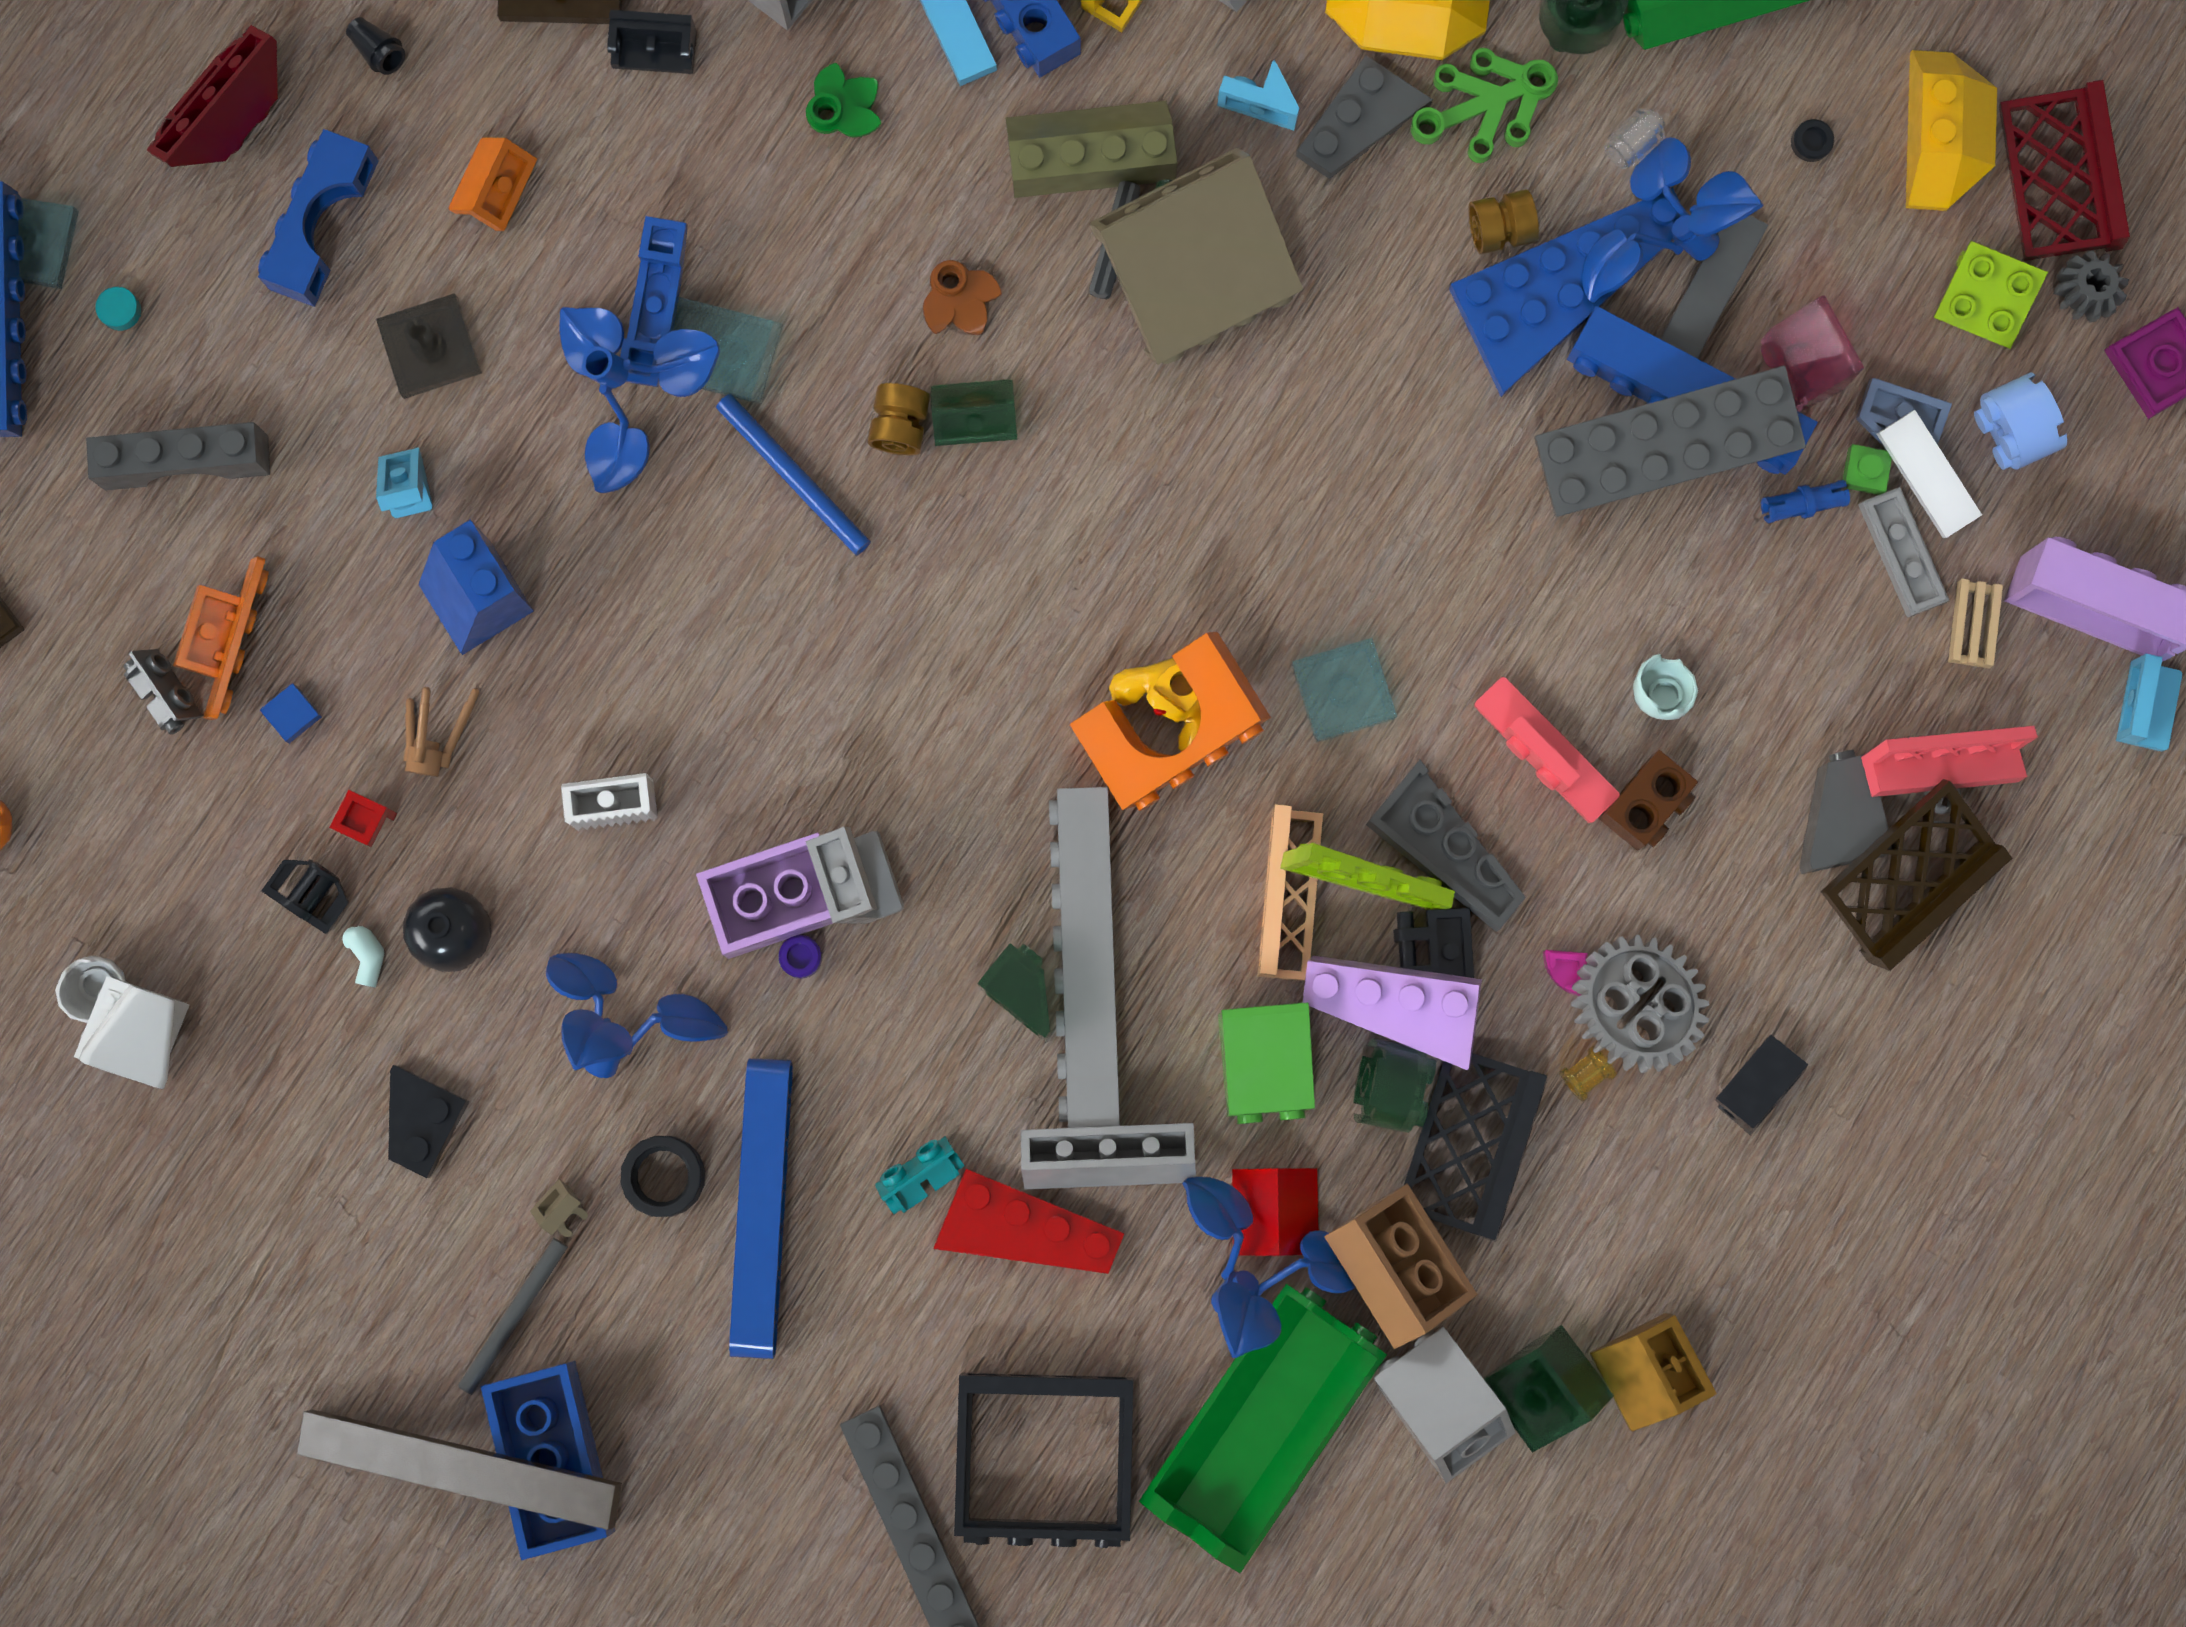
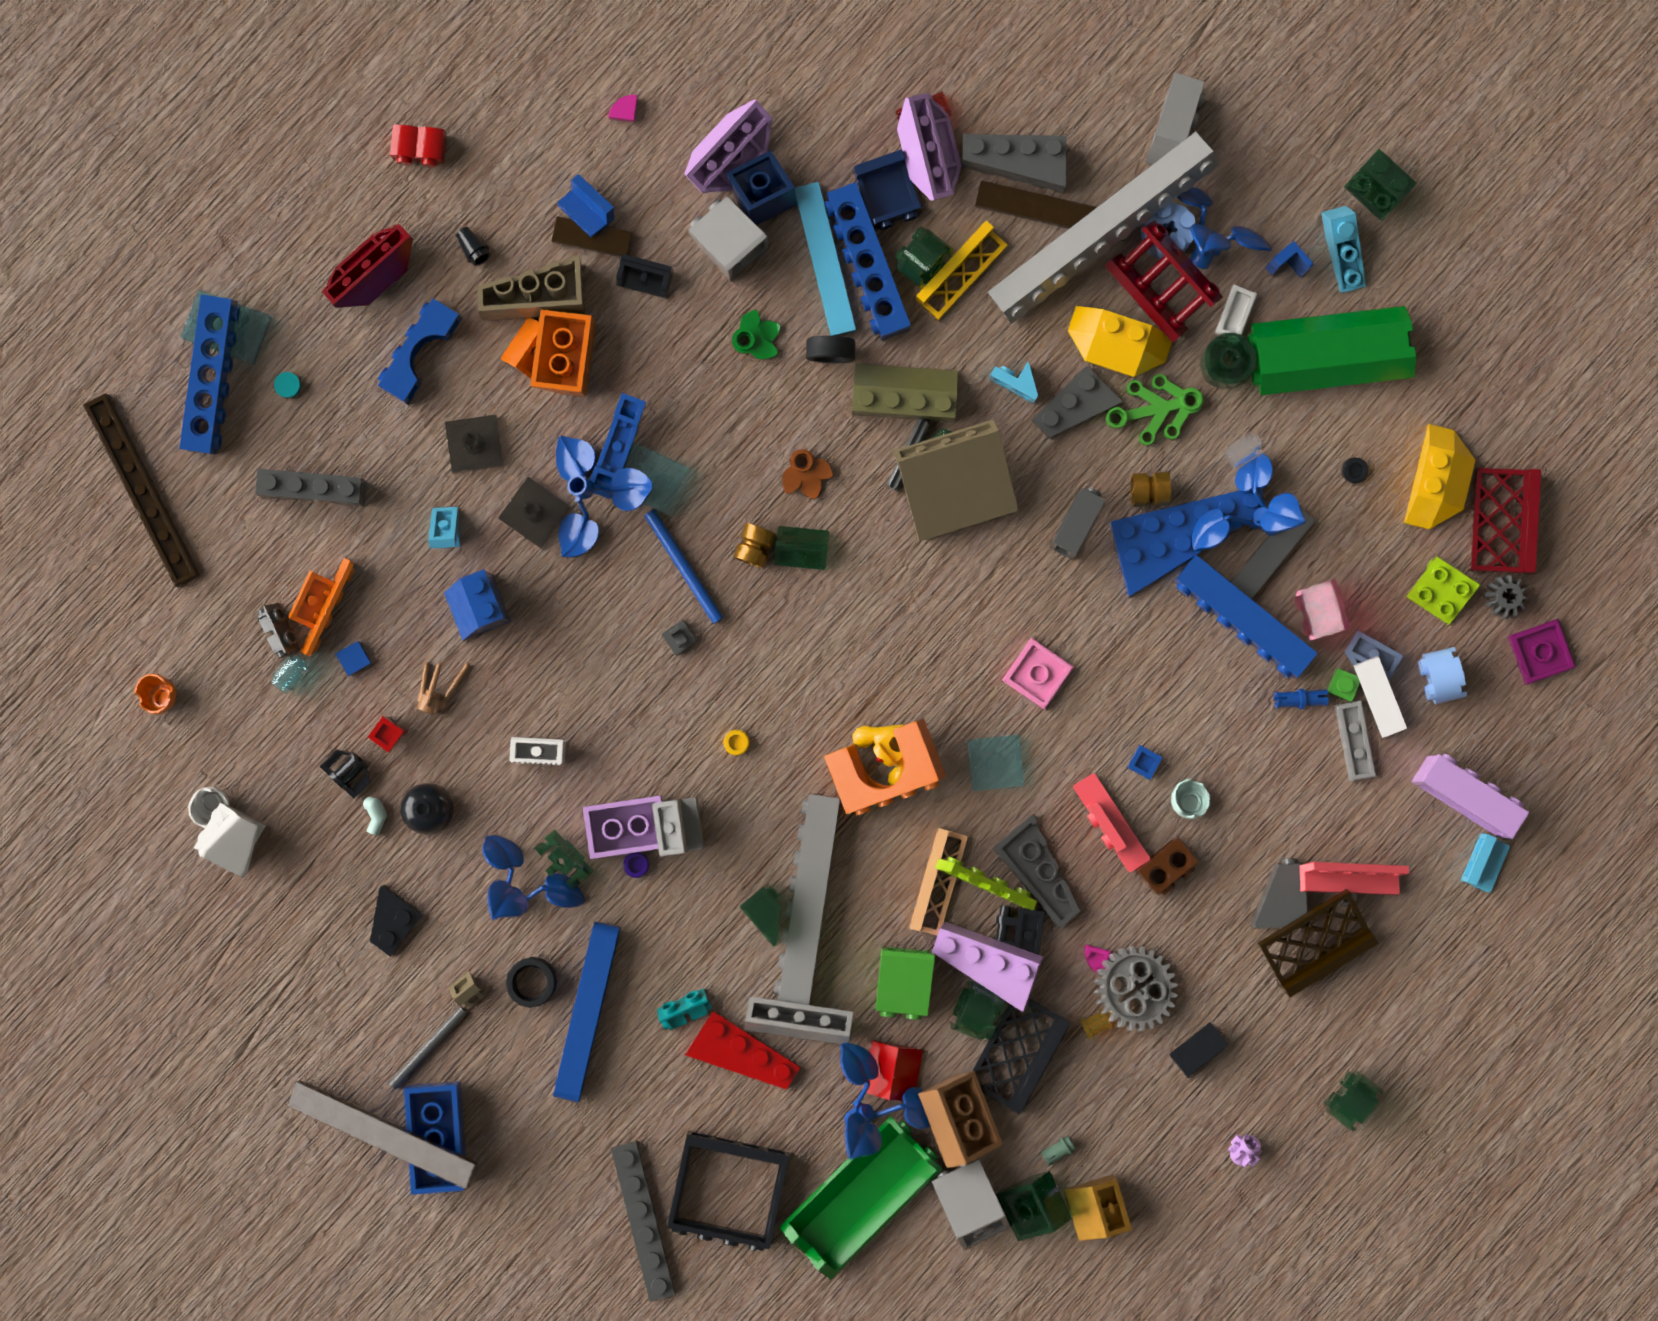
camera: 10 degrees right, 5 degrees up
(190, 754) = (289, 673): none -> clear light blue brick
(483, 96) = (525, 295): none -> dark tan wedge
(541, 434) = (534, 512): none -> clear smoke tile
(544, 176) = (563, 353): none -> orange slope
(692, 961) = (569, 854): none -> clear green piece
(805, 586) = (679, 637): none -> dark grey tile
(926, 733) = (736, 742): none -> yellow tile
(962, 96) = (830, 349): none -> black tyre
(1383, 539) = (1037, 673): none -> bright pink tile
(1399, 290) = (1077, 522): none -> dark grey window
(1568, 1290) = (1058, 1150): none -> sand green pin
(1579, 645) = (1144, 762): none -> blue plate
(1670, 441) = (1222, 650): dark grey brick -> none
(1870, 1232) = (1245, 1150): none -> lavender gear
(1980, 589) = (1399, 796): tan tile -> none
(2028, 1116) = (1353, 1100): none -> clear green brick

